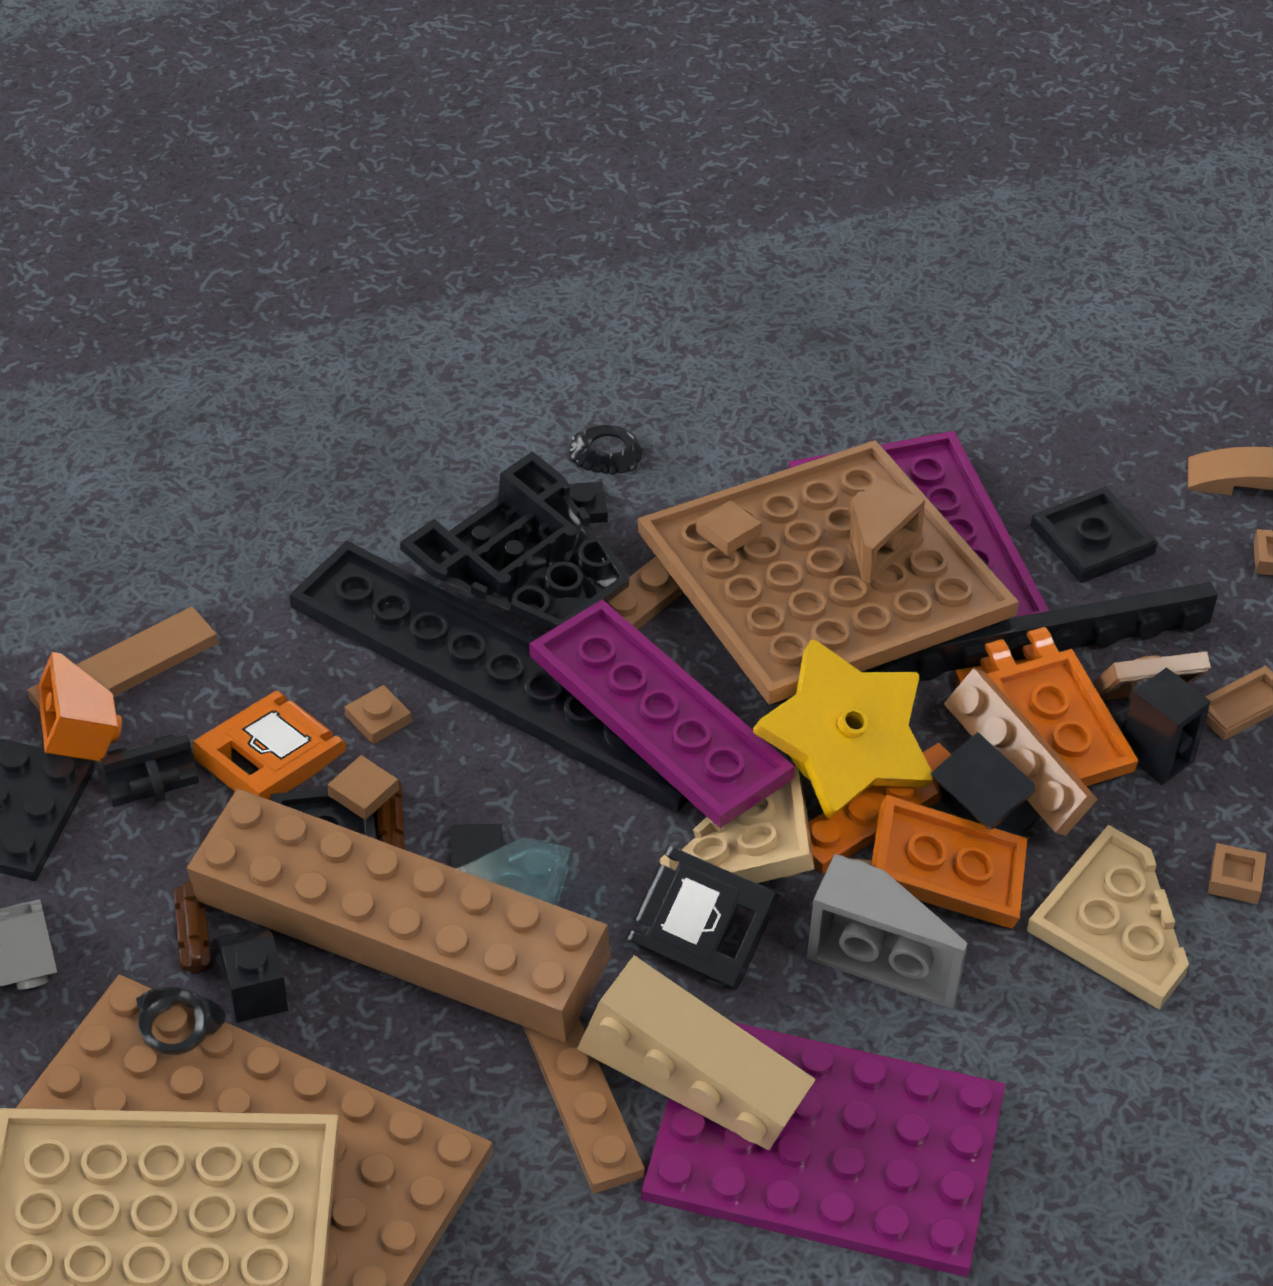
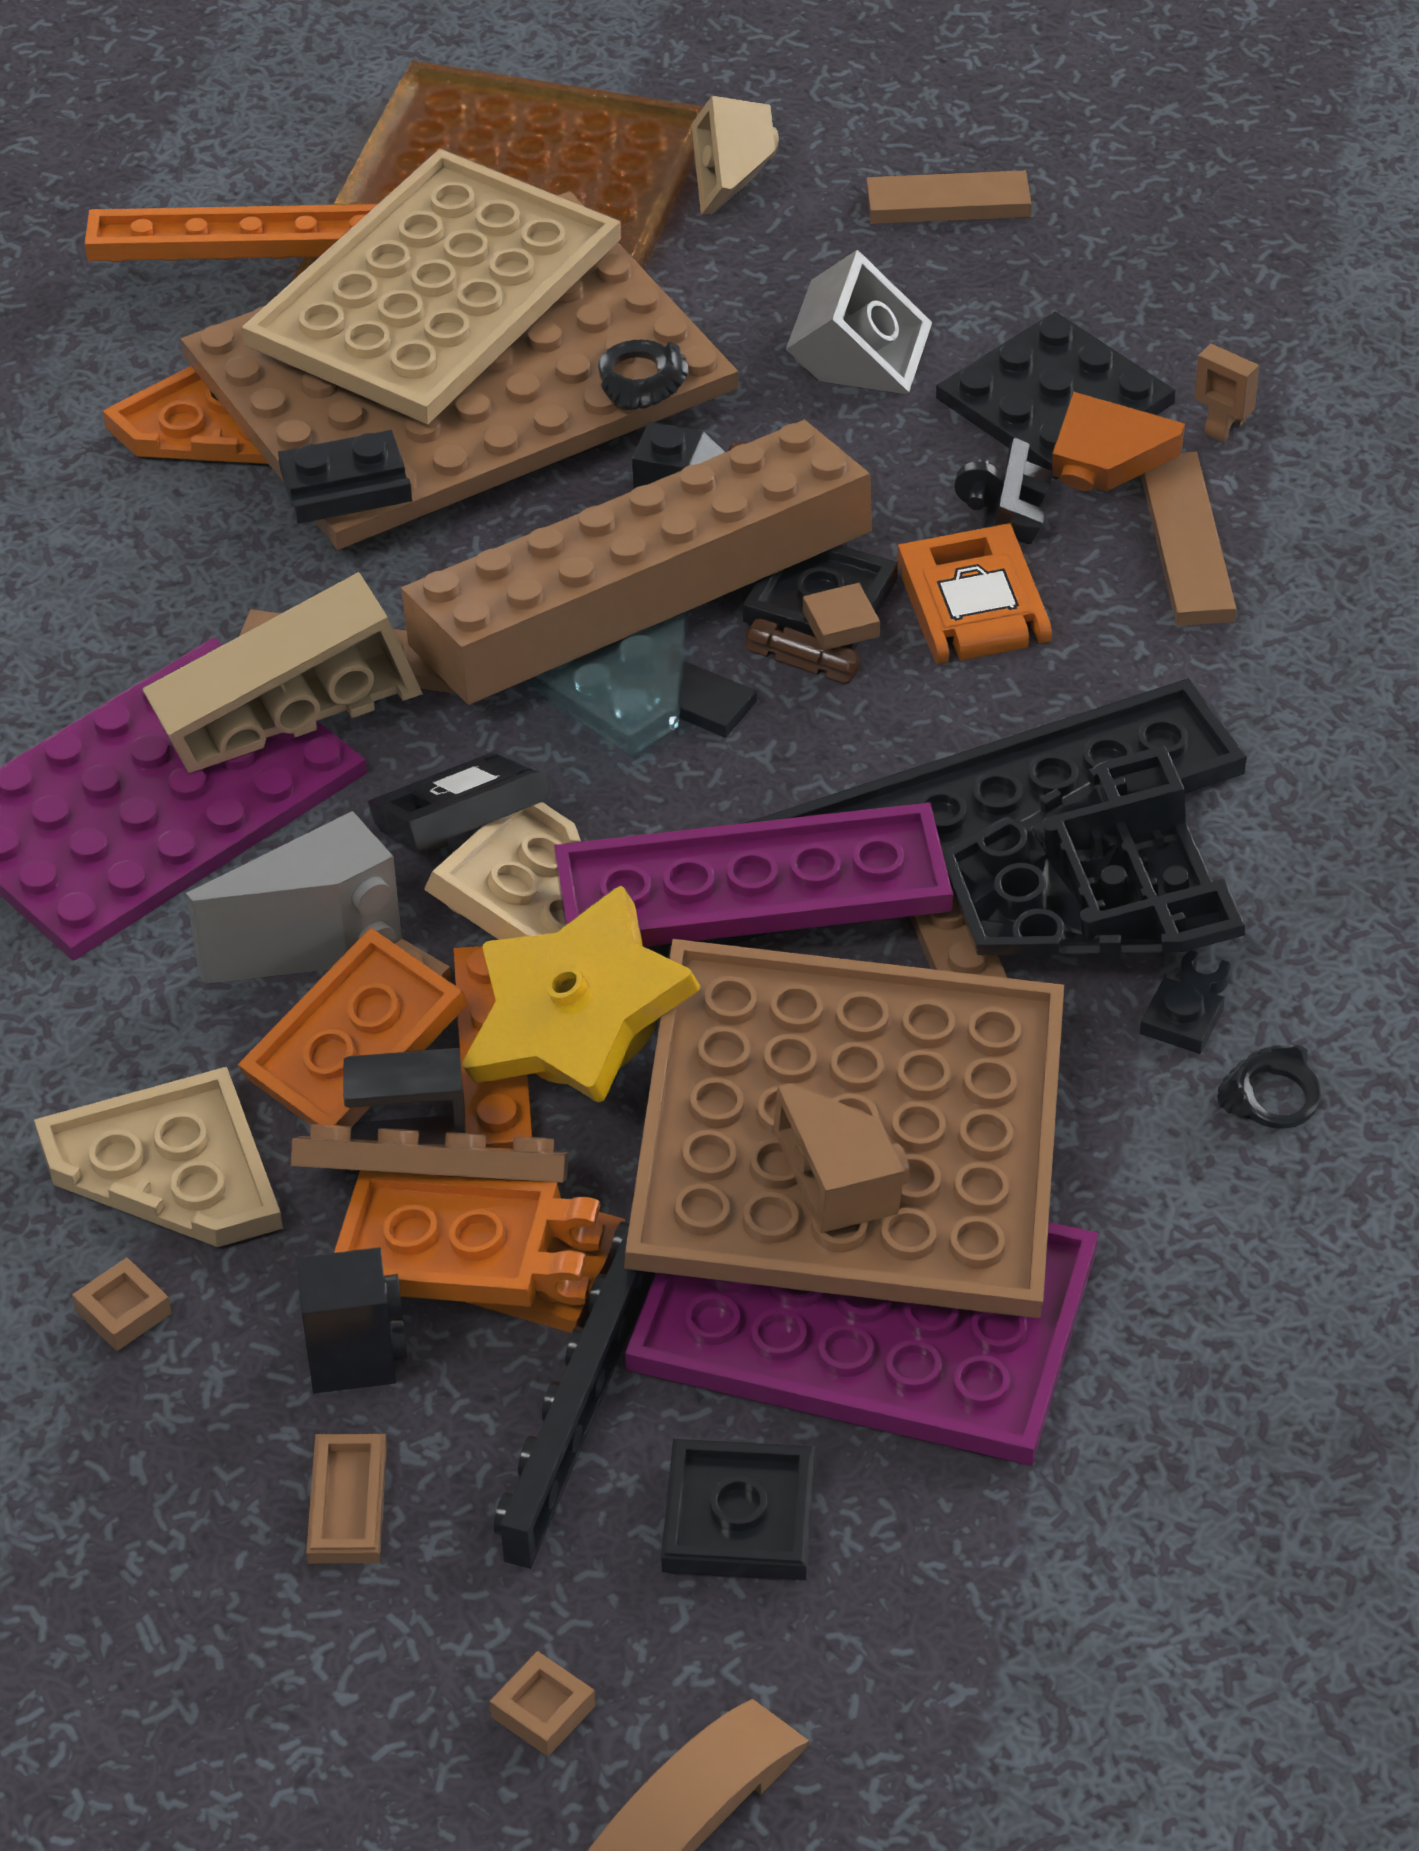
camera: 125 degrees right, 0 degrees up
(378, 714) = (963, 700): medium nougat plate -> none
(441, 1150) = (344, 476): none -> black plate
(728, 527) = (968, 1039): medium nougat tile -> none
(1123, 676) = (434, 1364): medium nougat plate -> none

